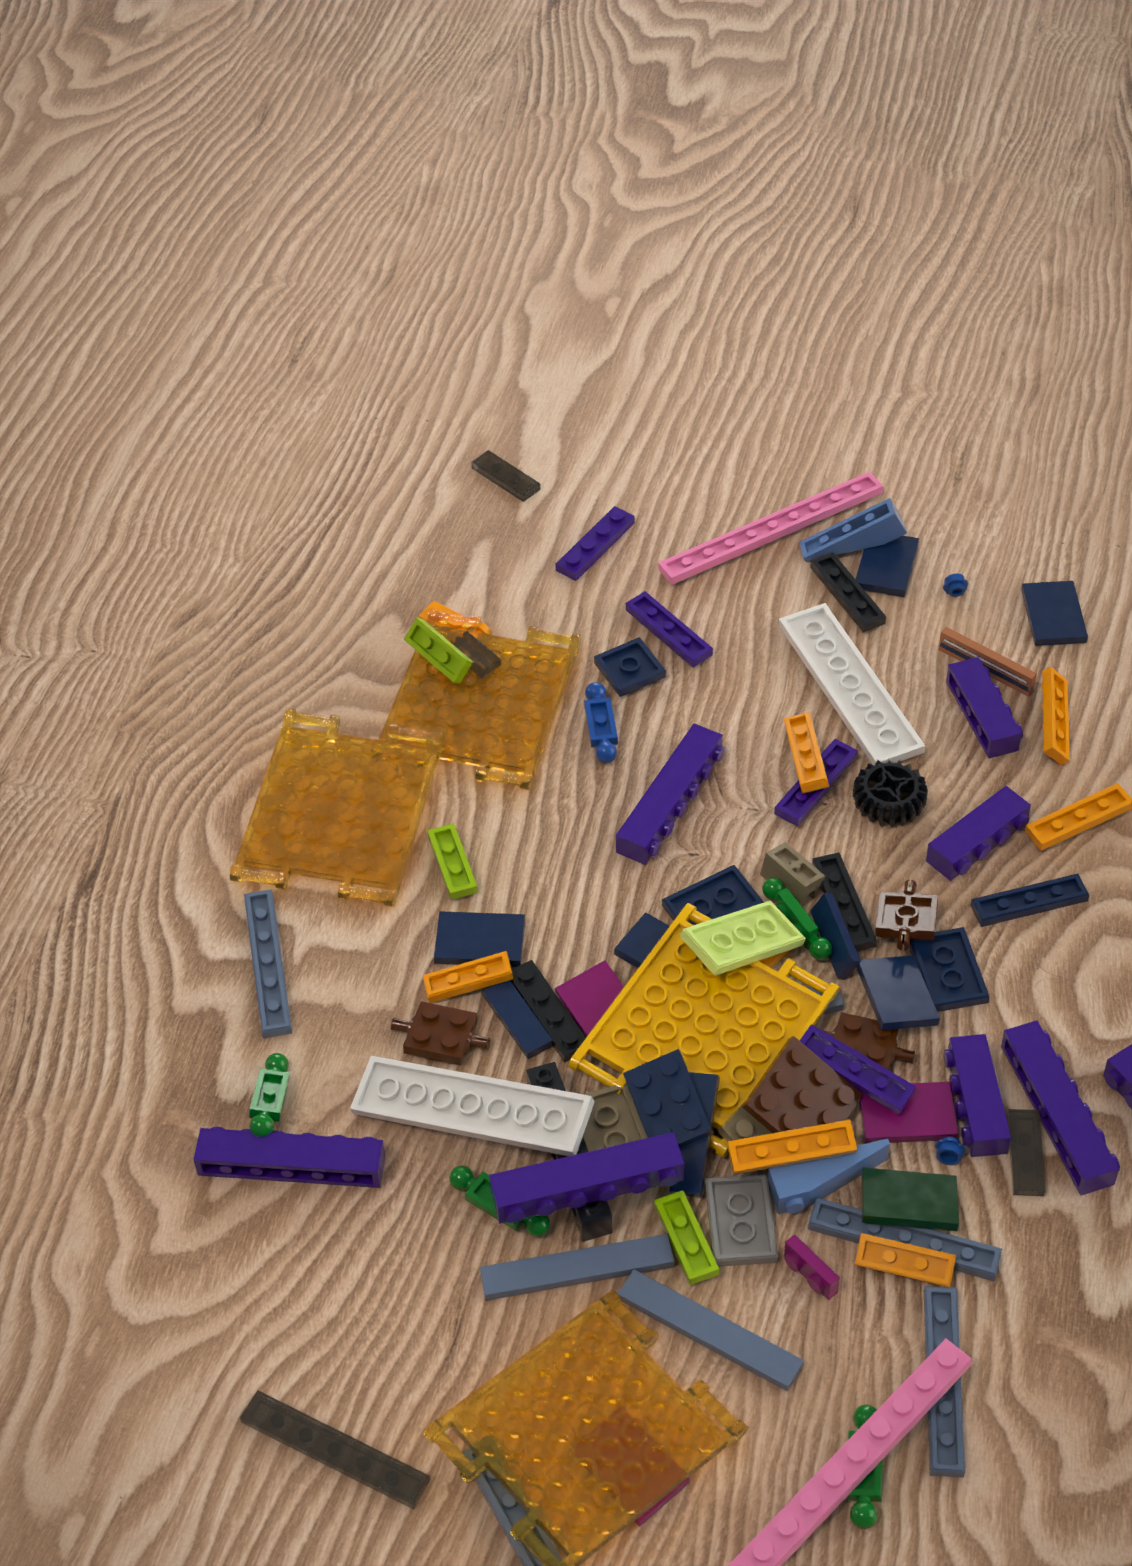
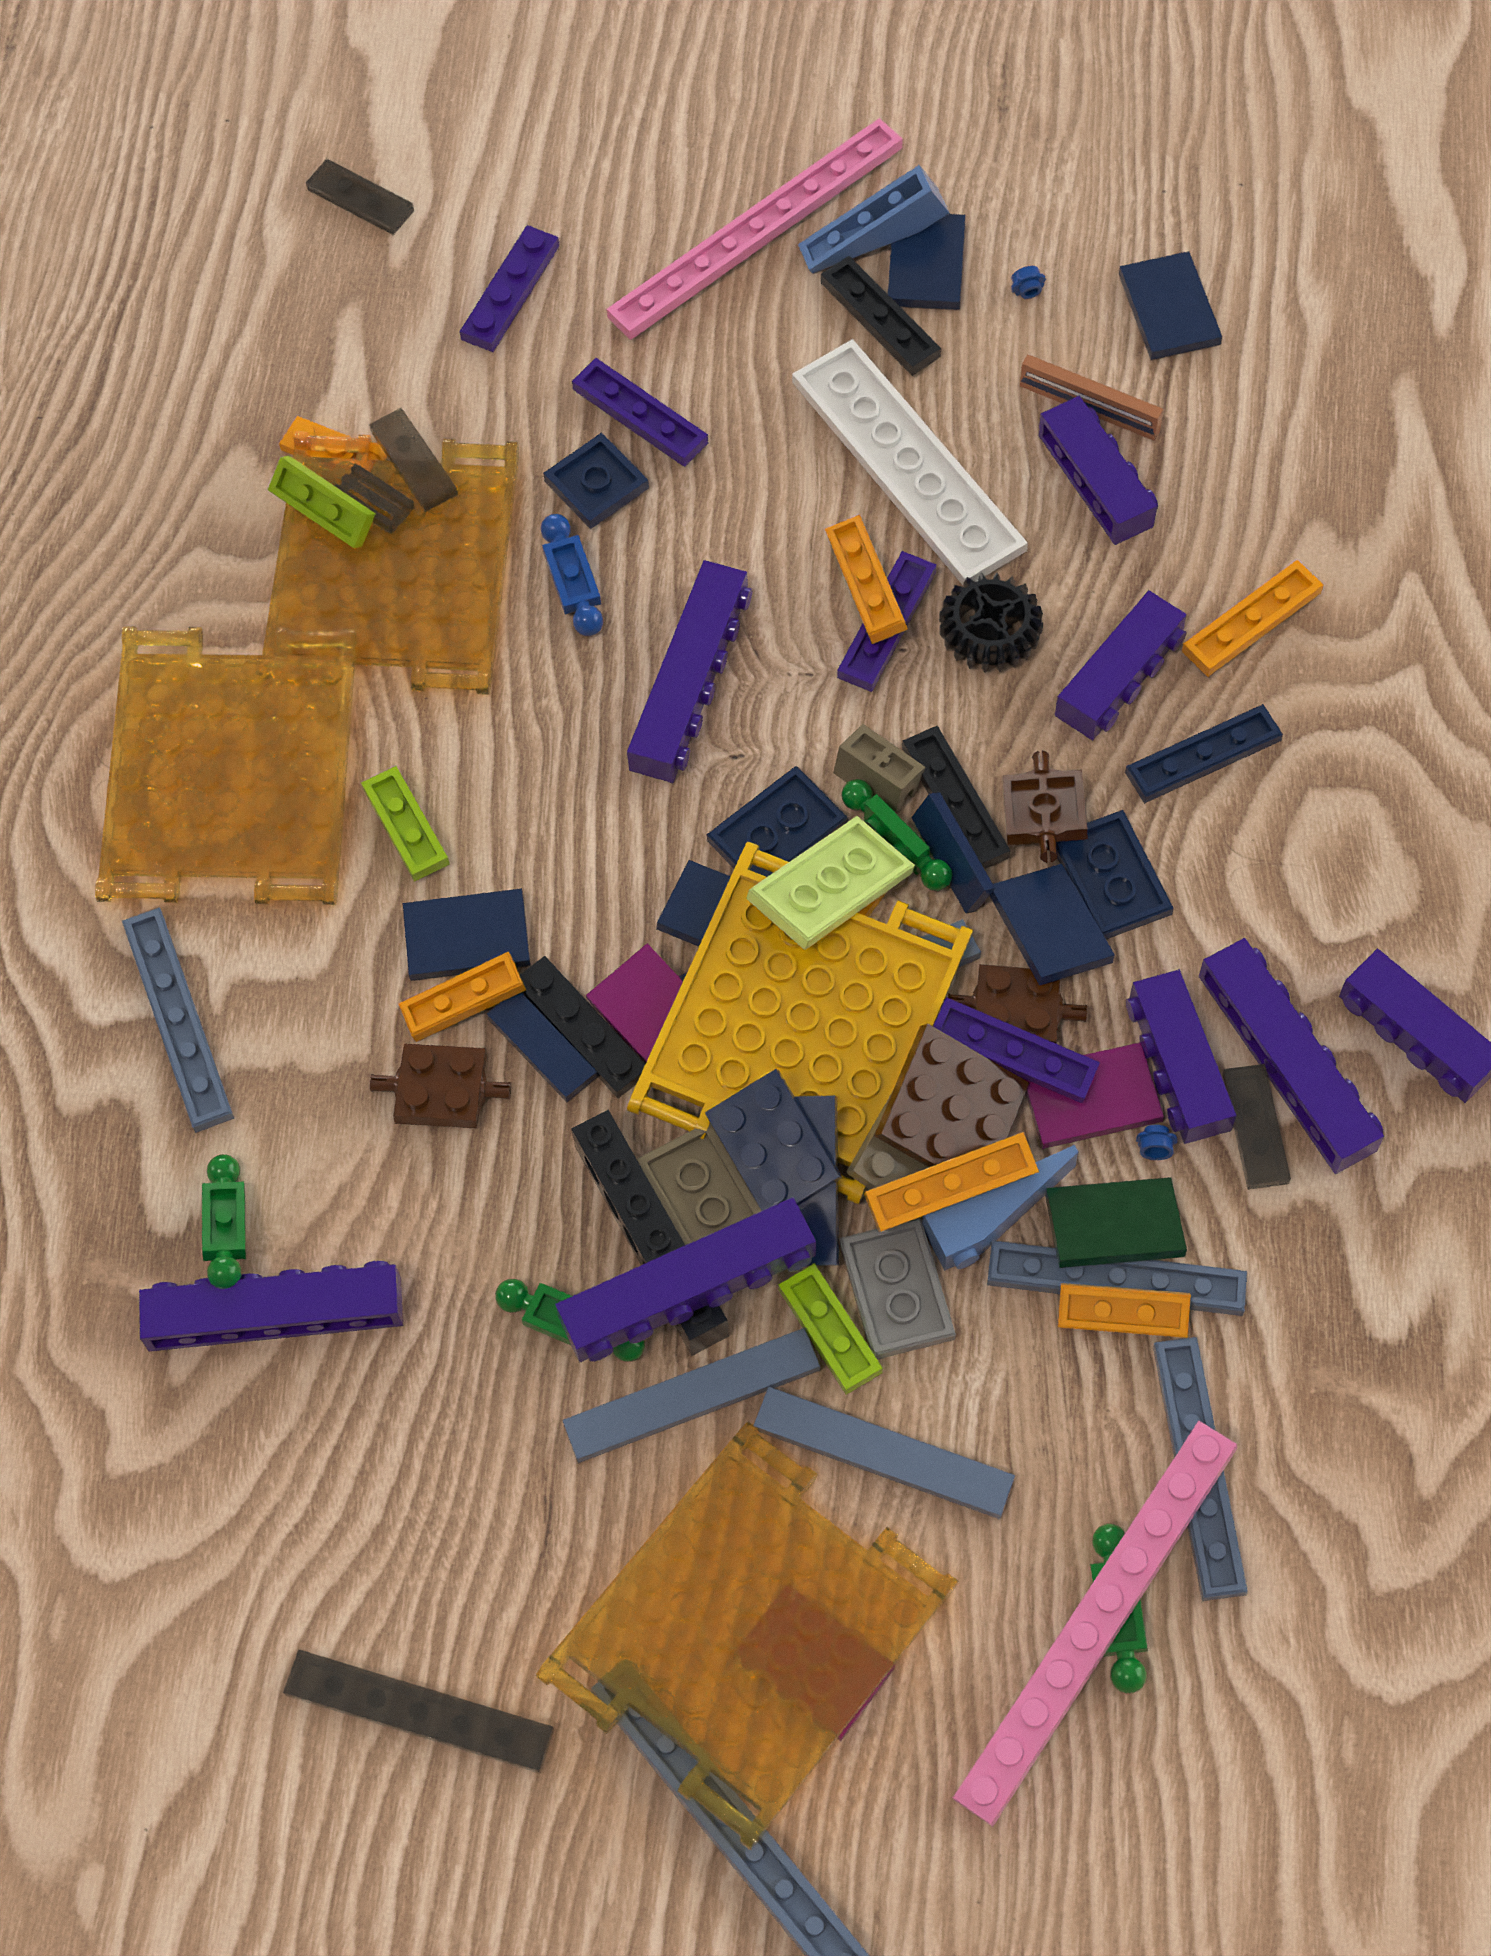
camera: 10 degrees left, 15 degrees up
(473, 1105) = (509, 1194): white plate -> none
(506, 634) = (413, 459): none -> clear smoke tile
(818, 1274) = (1015, 1353): magenta plate -> none
(1055, 716) = (1197, 468): light orange plate -> none

